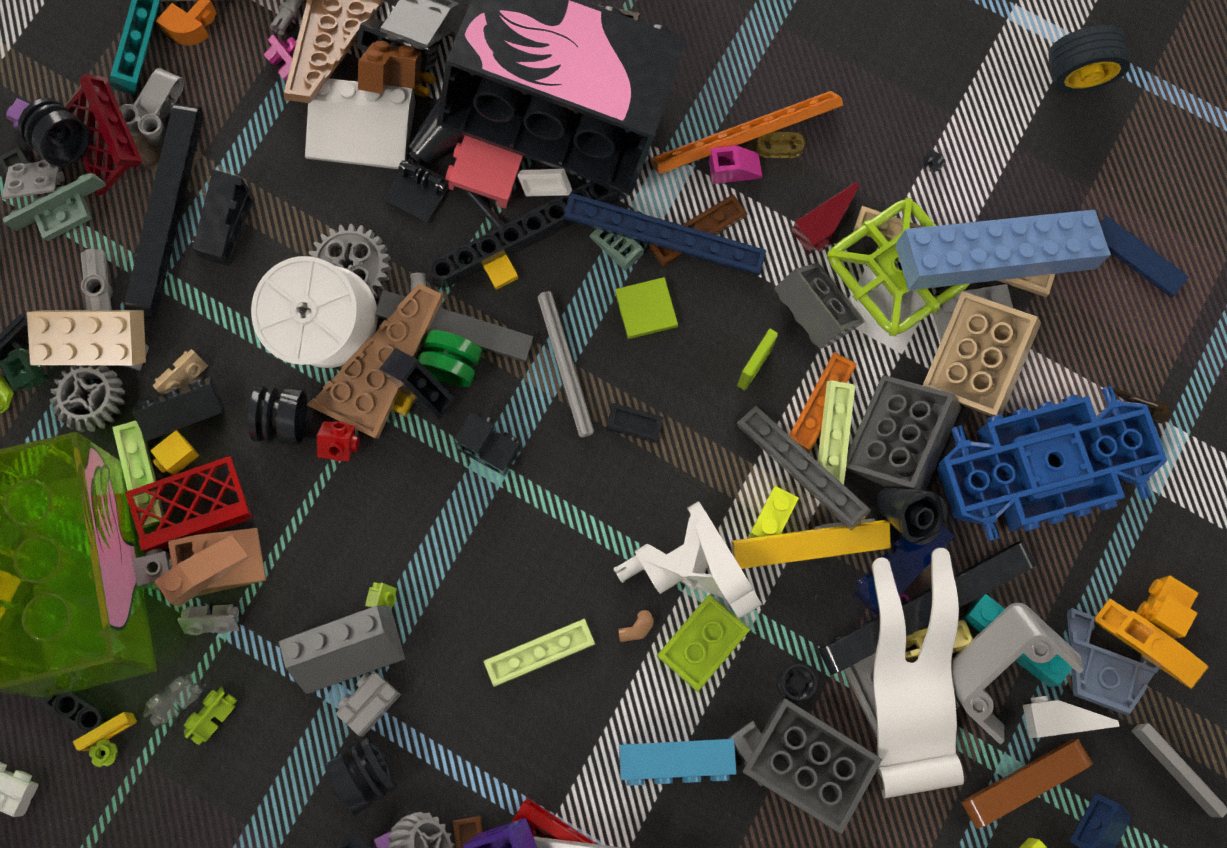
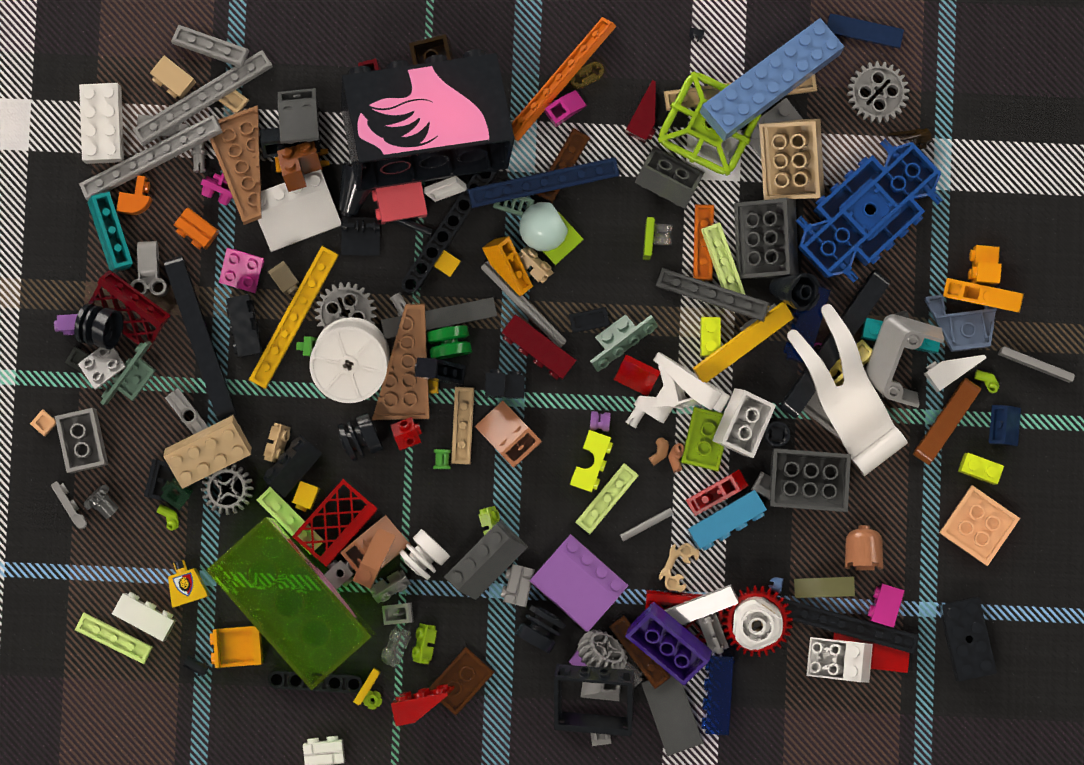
camera: 25 degrees left, 10 degrees up
(142, 788) = (410, 707): none -> red slope
(200, 660) = (397, 613): none -> light grey slope
(227, 789) = (467, 676): none -> reddish brown tile
(235, 88) = (196, 228): none -> orange brick
(258, 158) = (241, 270): none -> dark pink hinge
(264, 602) = (424, 554): none -> white wheel
(285, 242) = (293, 317): none -> yellow tile
(299, 187) = (284, 278): none -> dark tan slope
(355, 499) = (442, 459): none -> bright green bush
(412, 469) = (462, 425): none -> tan tile
(443, 741) = (578, 583): none -> medium lavender slope
(460, 509) = (508, 434): none -> nougat slope
(527, 612) = (598, 446): none -> neon yellow arch
(555, 422) = (539, 347): none -> dark red brick
(564, 805) = (672, 582): none -> tan helmet
(571, 306) = (507, 264): none -> light orange slope
(572, 712) = (646, 524): none -> light grey bar
(581, 550) = (604, 421): none -> medium lavender wheel
(601, 314) = (541, 269): none -> tan hinge
(636, 285) = (542, 227): none -> light aqua cylinder
(652, 644) = (675, 456): none -> nougat arm
(657, 516) = (637, 375): none -> red tile
(661, 463) = (619, 338): none -> sand green bracket
(682, 718) = (717, 492): none -> red slope
(762, 646) = (744, 422): none -> white brick
(776, 366) = (664, 236): none -> clear wheel
(1106, 757) = (989, 380): none -> lime arm
(1113, 311) = (890, 103): none -> light grey gear

